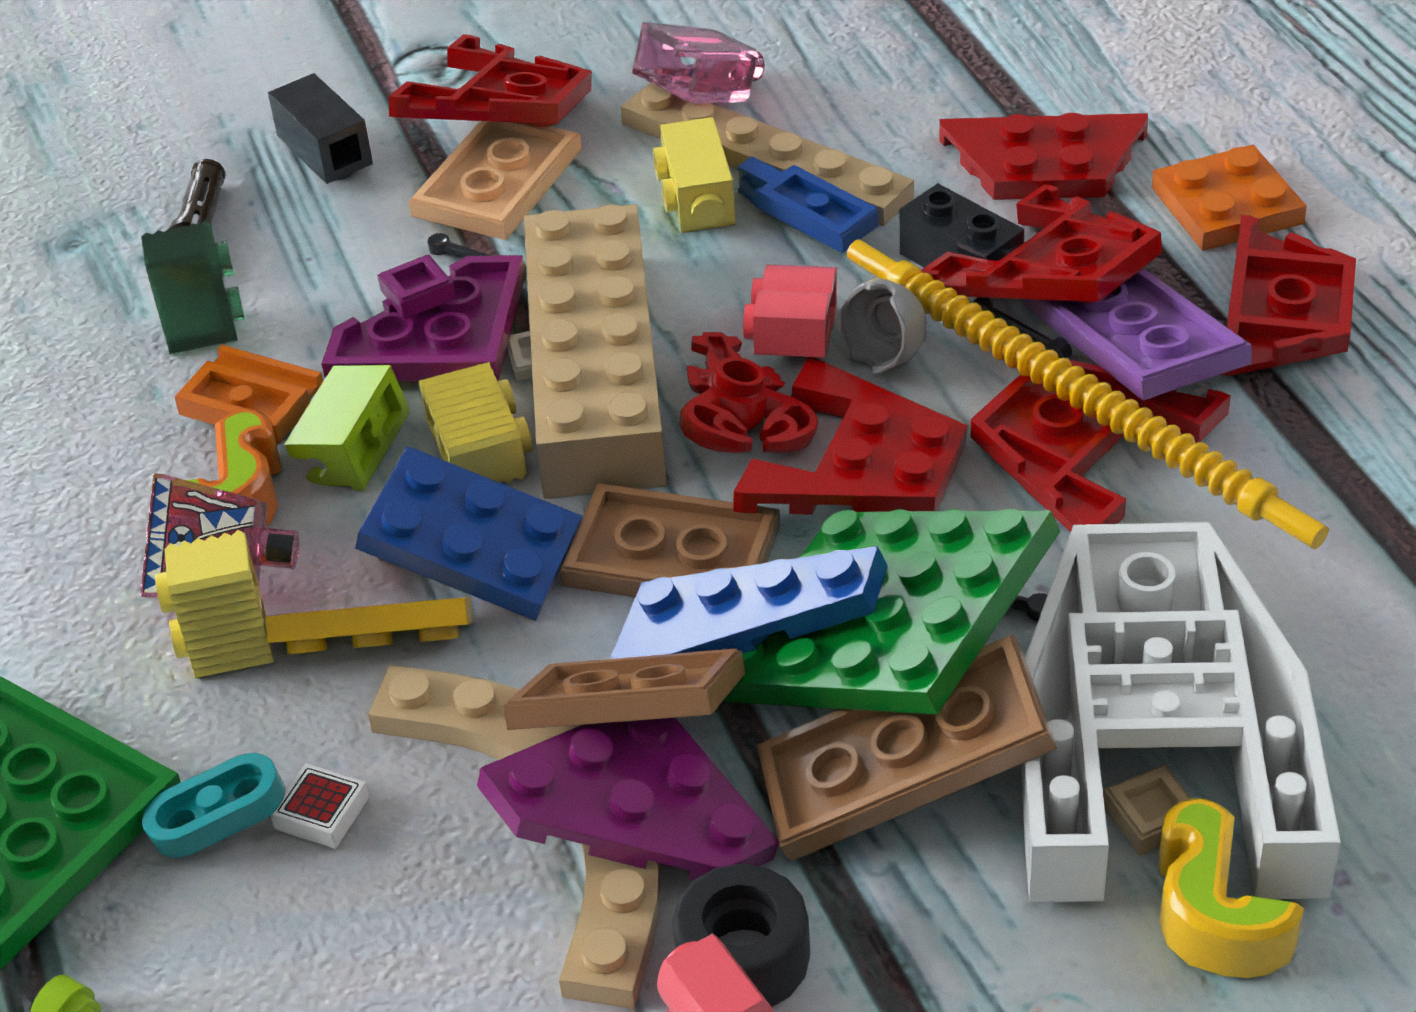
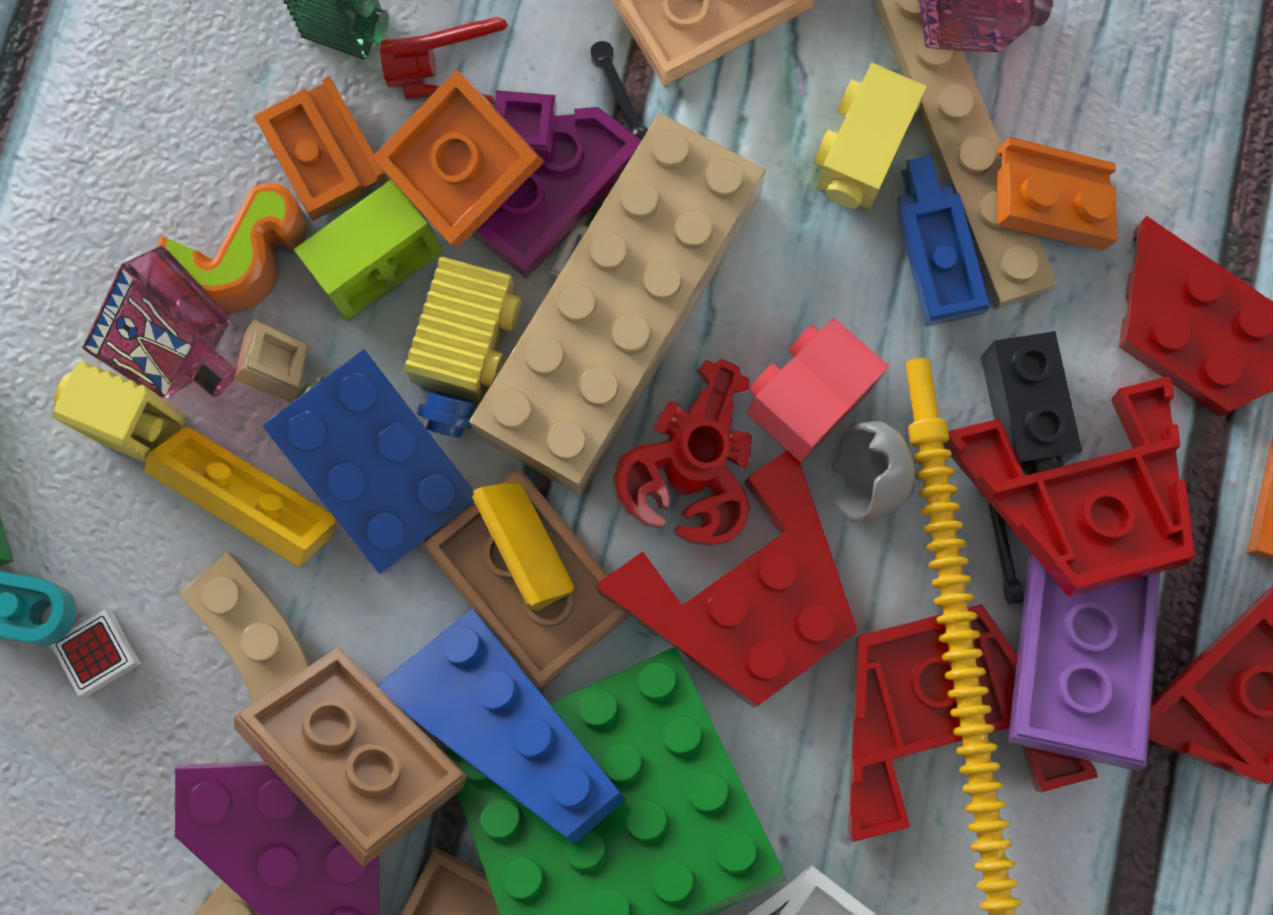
camera: 35 degrees right, 35 degrees up
(285, 306) = (412, 59): none -> red plant
(322, 521) = (271, 361): none -> tan tile
(384, 312) = (457, 159): none -> orange plate
(512, 469) = (447, 413): none -> blue plate
(646, 509) = (523, 544): none -> yellow slope
(865, 134) = (1056, 194): none -> orange plate

